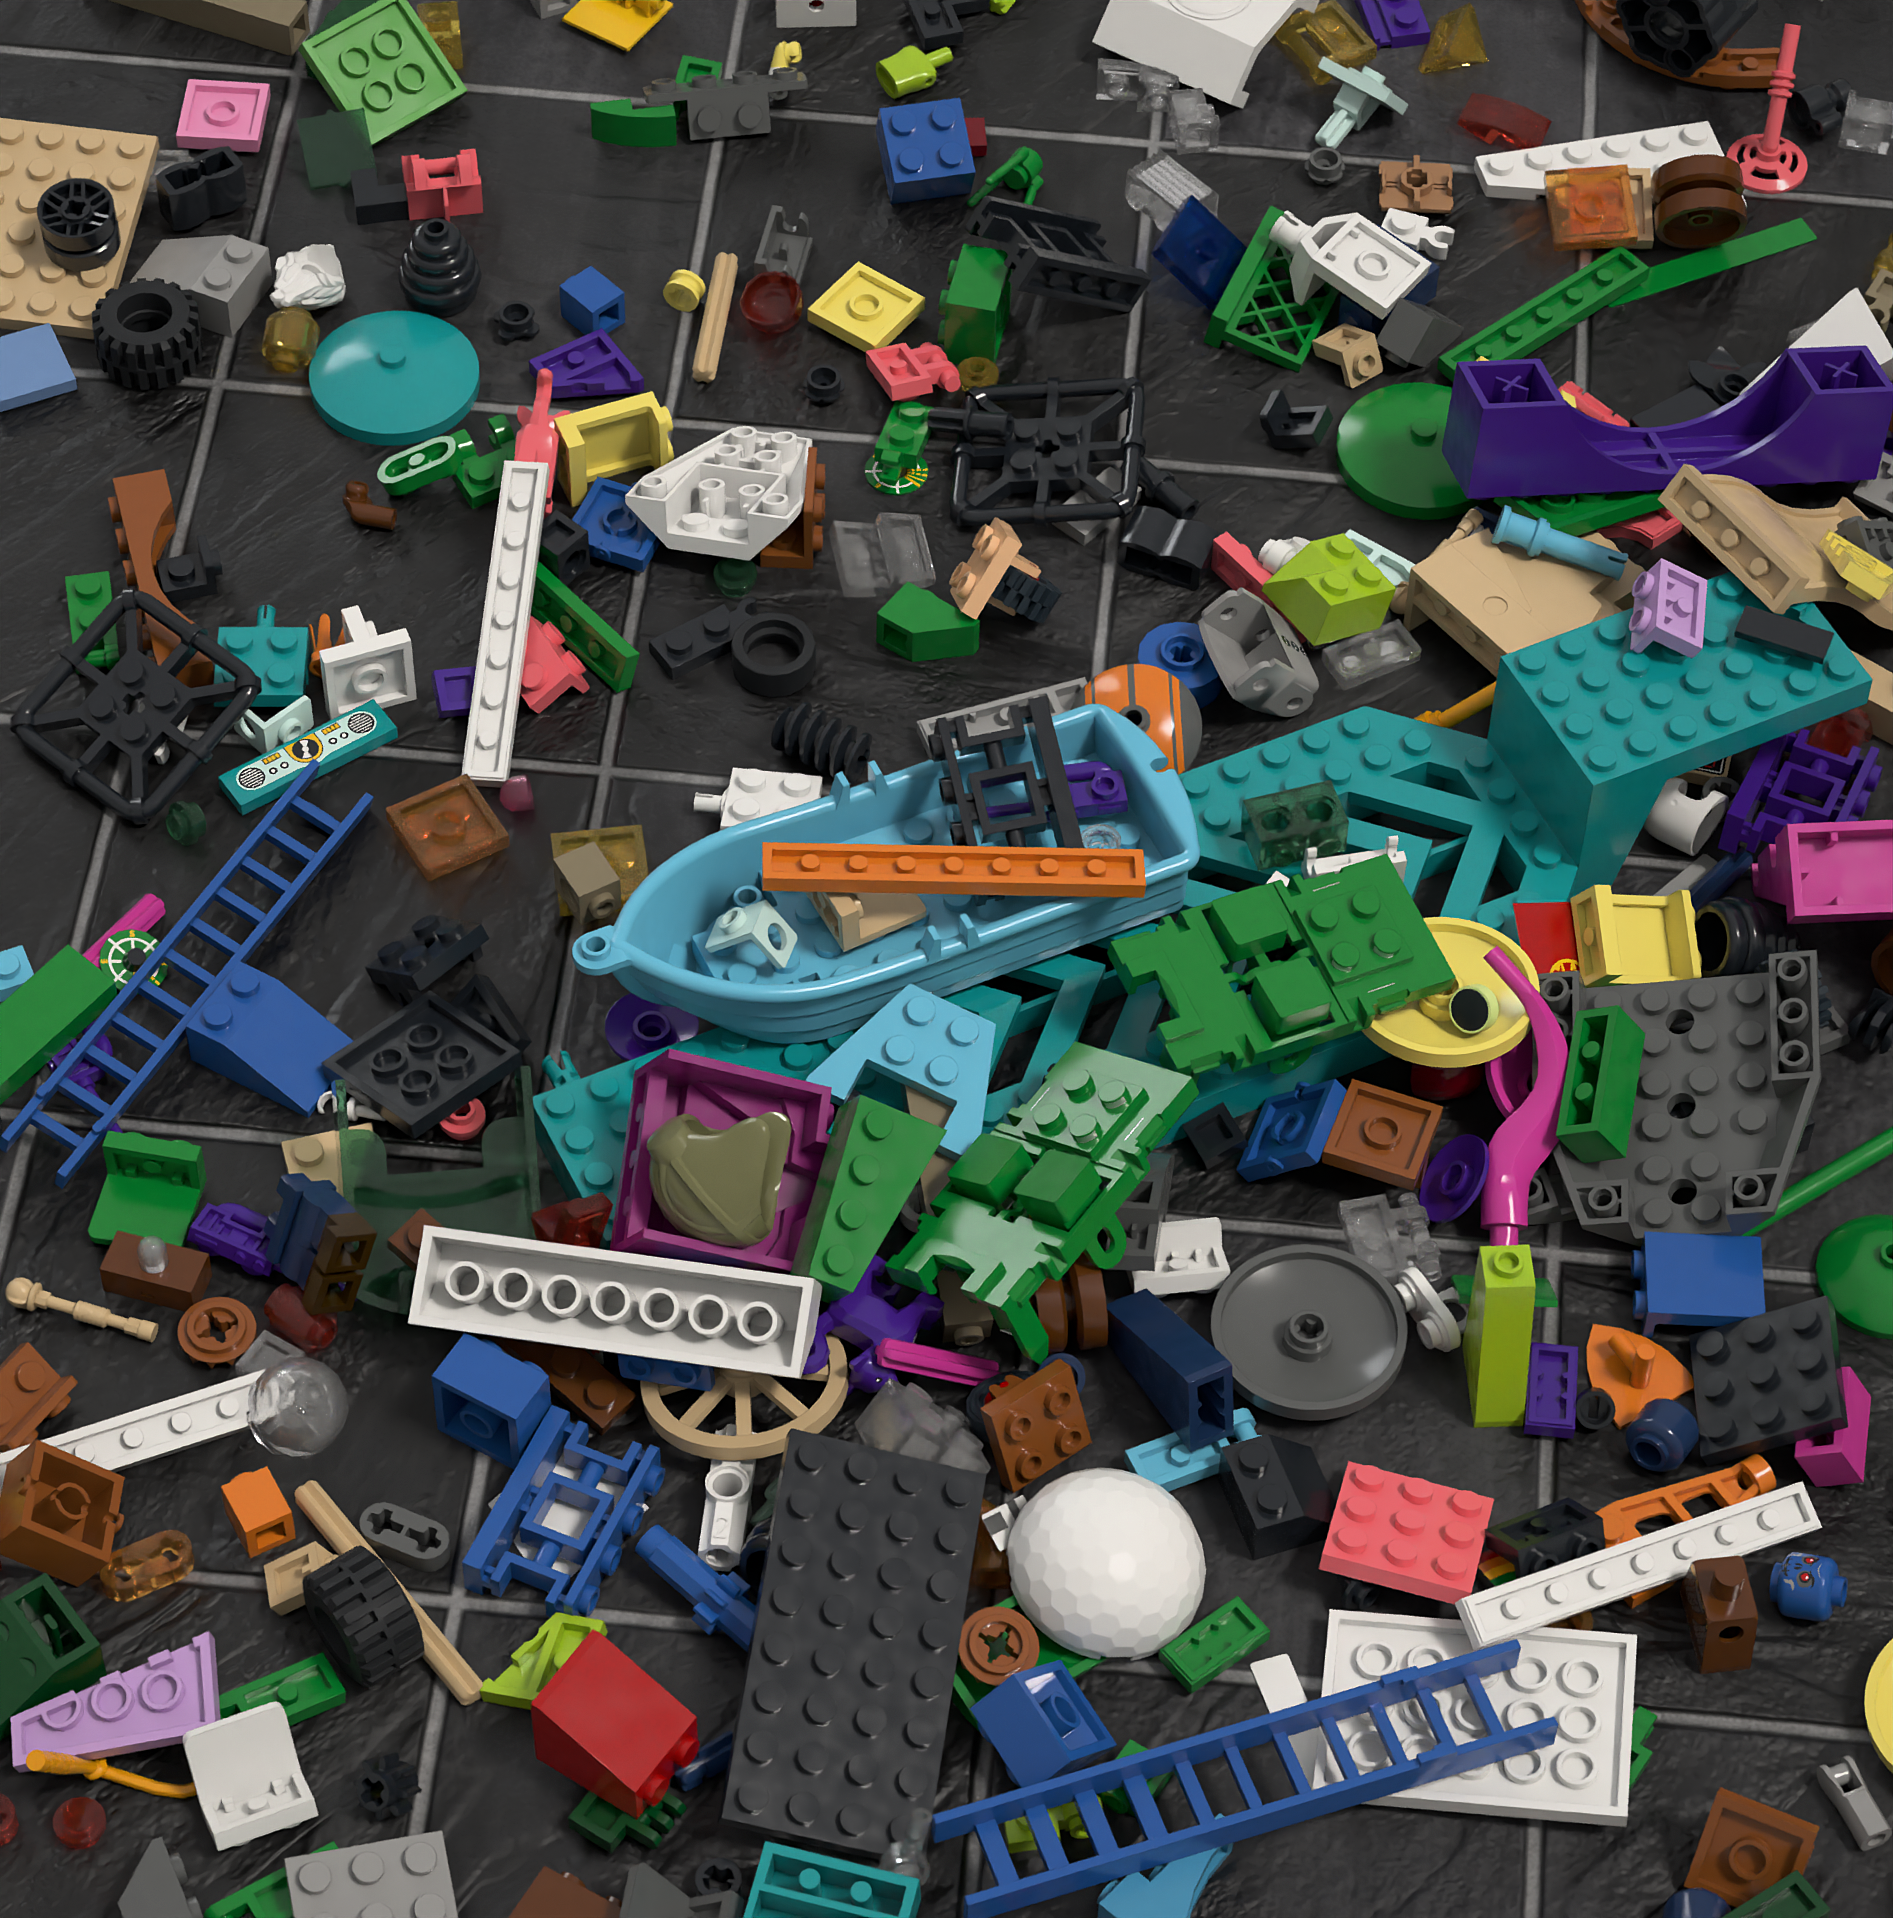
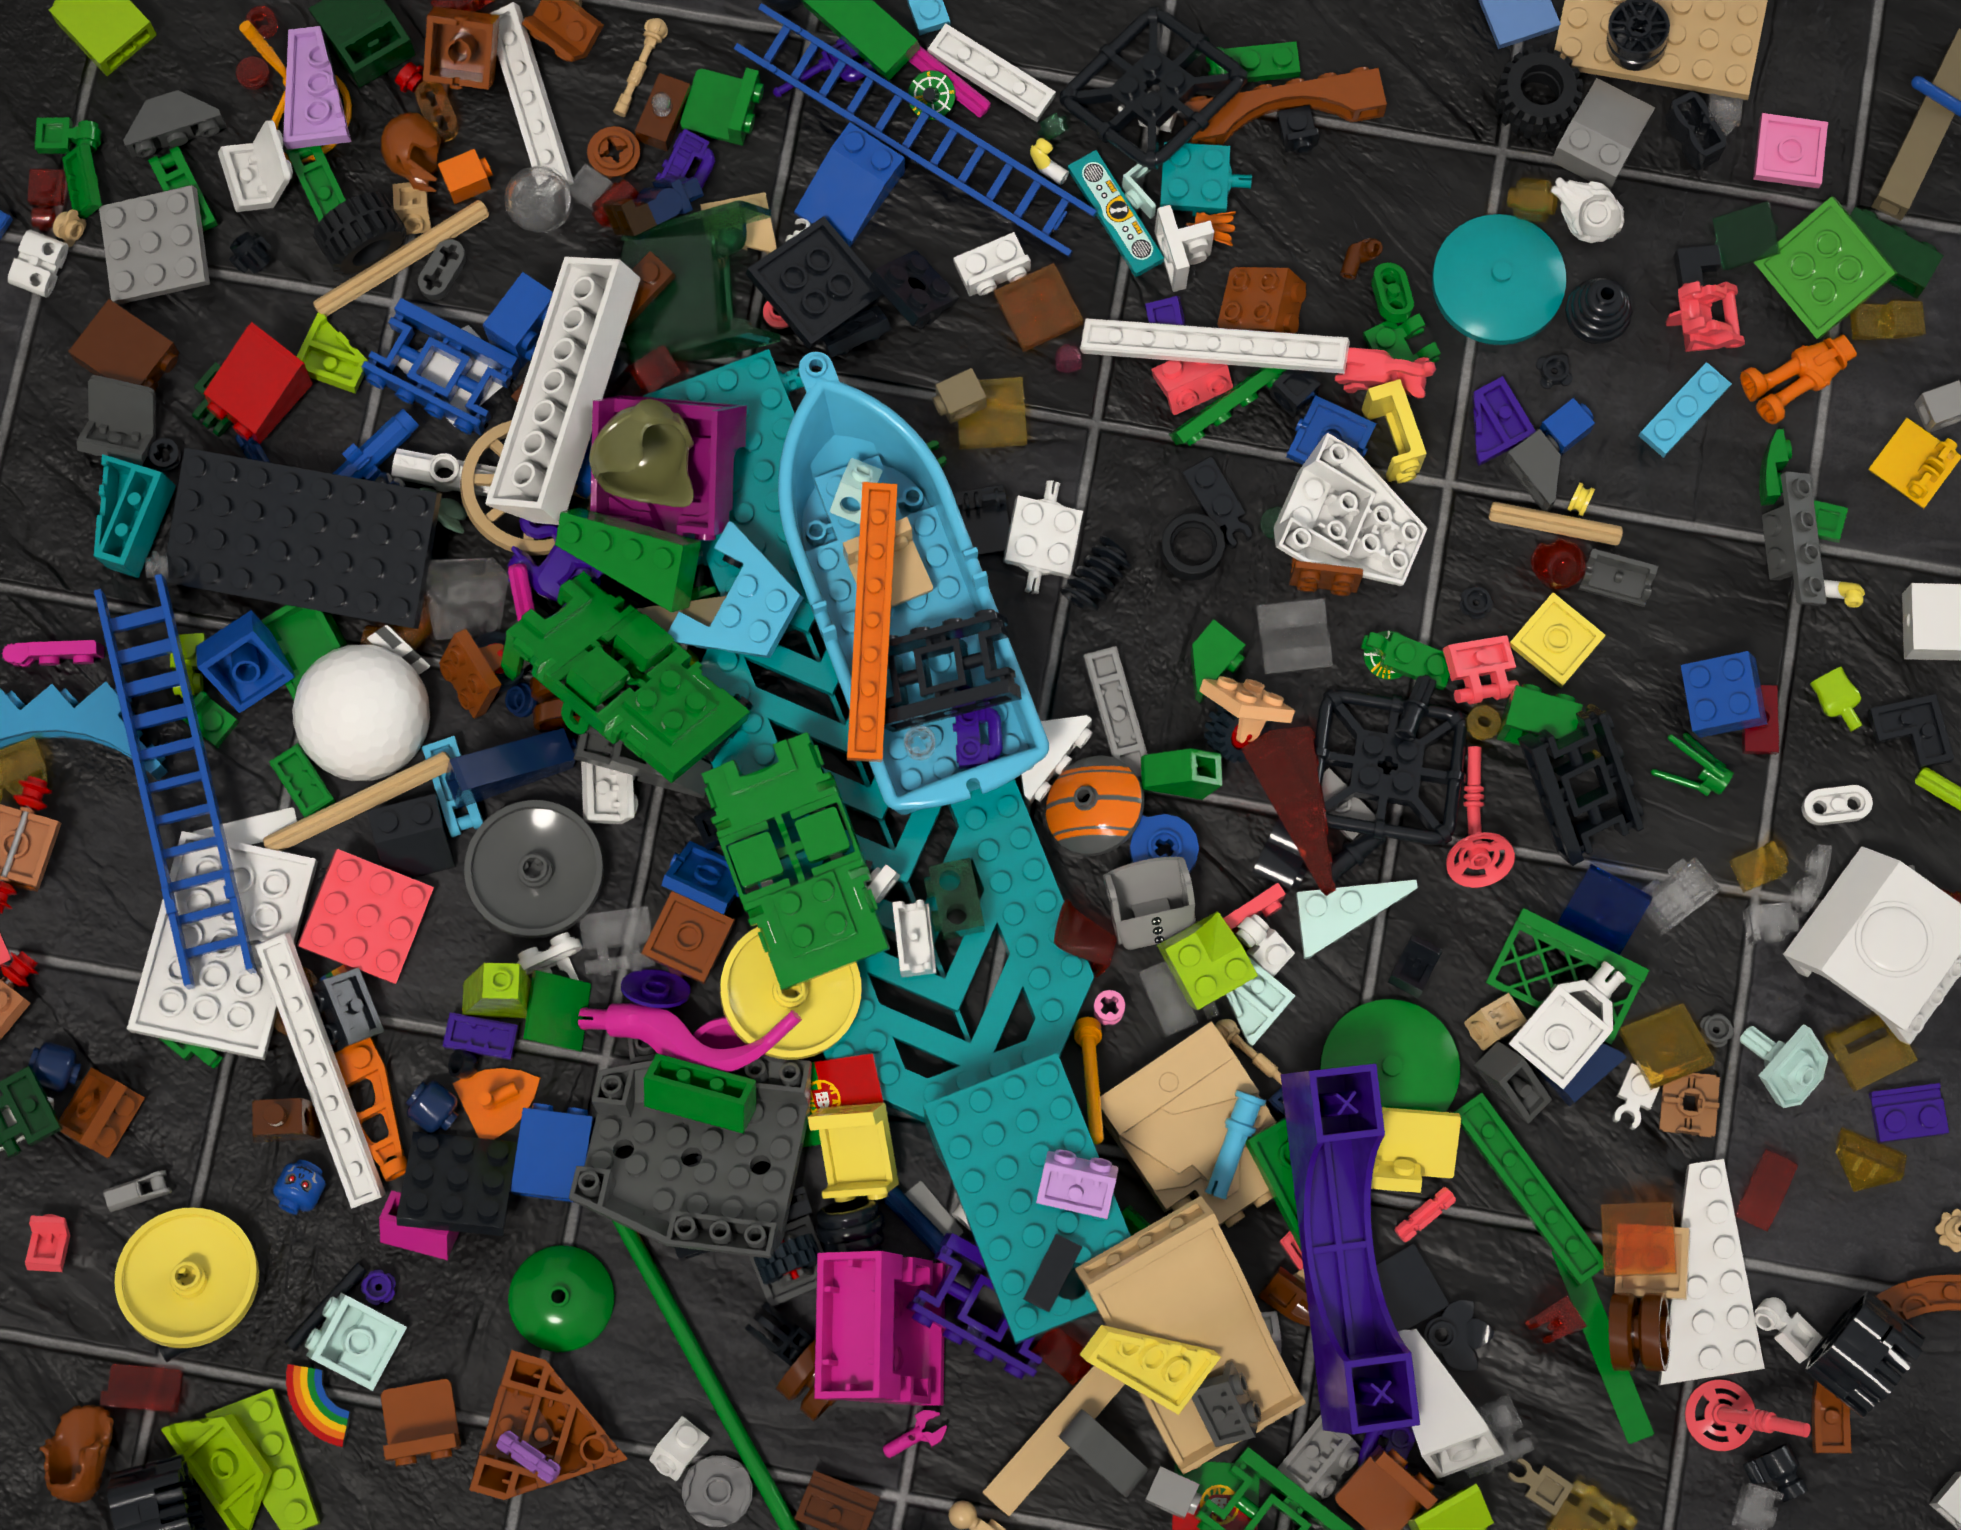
camera: 95 degrees right, 25 degrees up
(93, 1602) = (409, 77): none -> red plate
(104, 891) = (991, 72): none -> white plate
(214, 1583) = (411, 149): none -> dark orange helmet
(233, 832) = (1044, 164): none -> arm
(387, 881) = (992, 265): none -> white bracket
(435, 597) = (1262, 300): none -> dark orange bracket
(504, 92) = (1813, 365): none -> orange piece
(560, 207) = (1685, 409): none -> medium azure plate
(651, 326) = (1536, 467): none -> dark grey slope
(989, 1625) = (286, 639): dark orange gear -> none
(1042, 69) = (1835, 805): none -> white plate
(1080, 526) = (1289, 775): none -> clear red wedge
(1082, 635) = (1182, 773): none -> green slope
(1125, 127) = (1760, 866): none -> clear yellow bracket
(1149, 363) = (1477, 849): none -> coral dish
(1231, 498) = (1332, 916): none -> light aqua wing
(1240, 1562) = (358, 803): none -> tan axle
(1317, 713) = (1084, 938): none -> clear red piece
(1355, 188) = (1667, 1046): none -> clear yellow plate
(1397, 697) = (1107, 997): none -> bright pink bush
(1473, 1008) = (762, 1004): black tile -> none
(1661, 97) = (1794, 1332): none -> white plate
(1693, 276) = (1562, 1319): none -> clear red hinge

